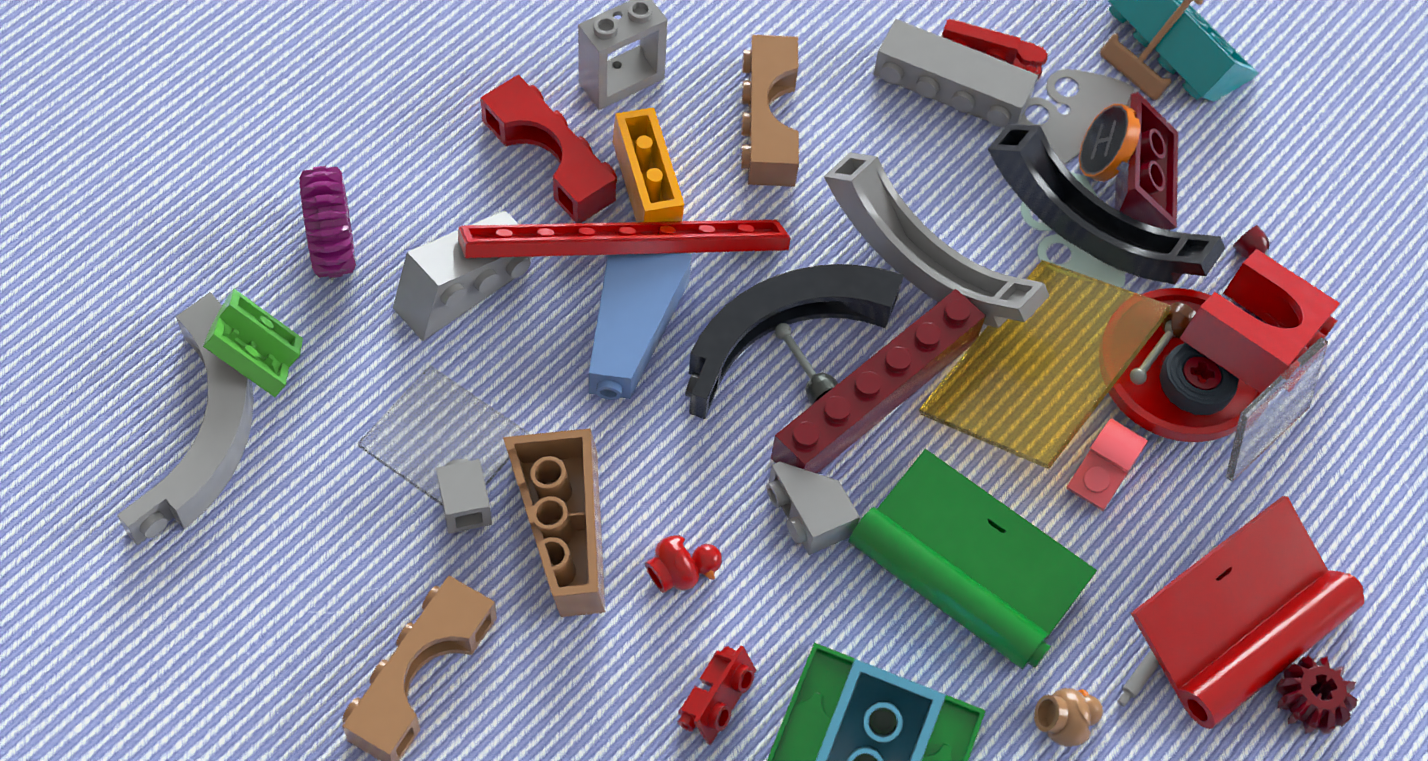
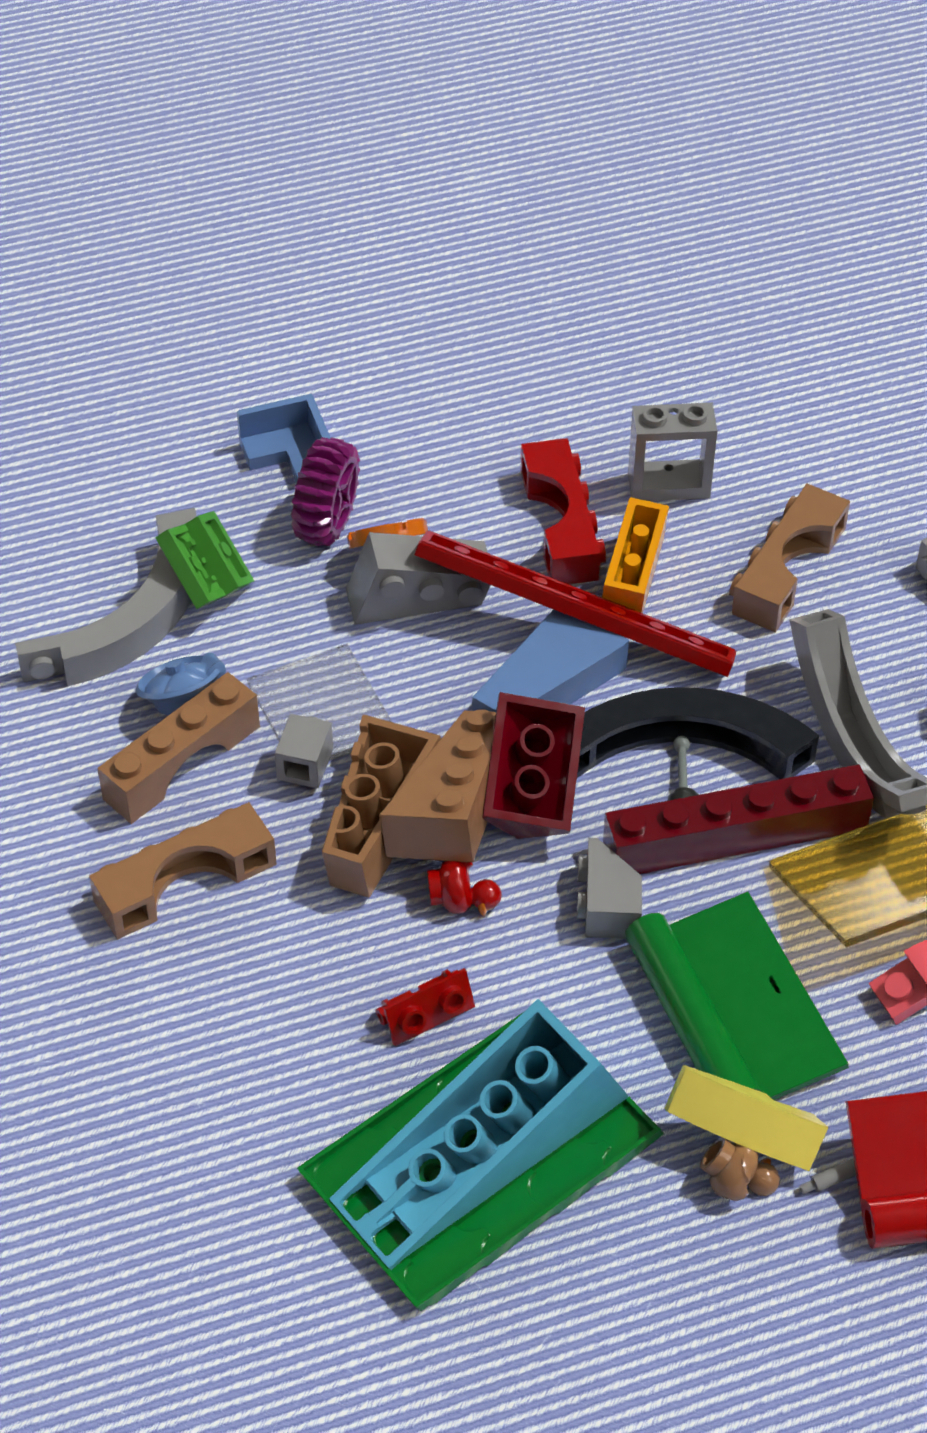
camera: 35 degrees right, 10 degrees down
(248, 172) = (280, 432): none -> medium blue panel
(305, 479) = (179, 681): none -> medium blue piece
(328, 573) = (142, 771): none -> medium nougat arch
(408, 237) = (412, 527): none -> orange tile
(630, 486) = (444, 799): none -> medium nougat wedge
(689, 417) = (533, 766): none -> dark red slope
(1059, 667) = (747, 1117): none -> light yellow slope

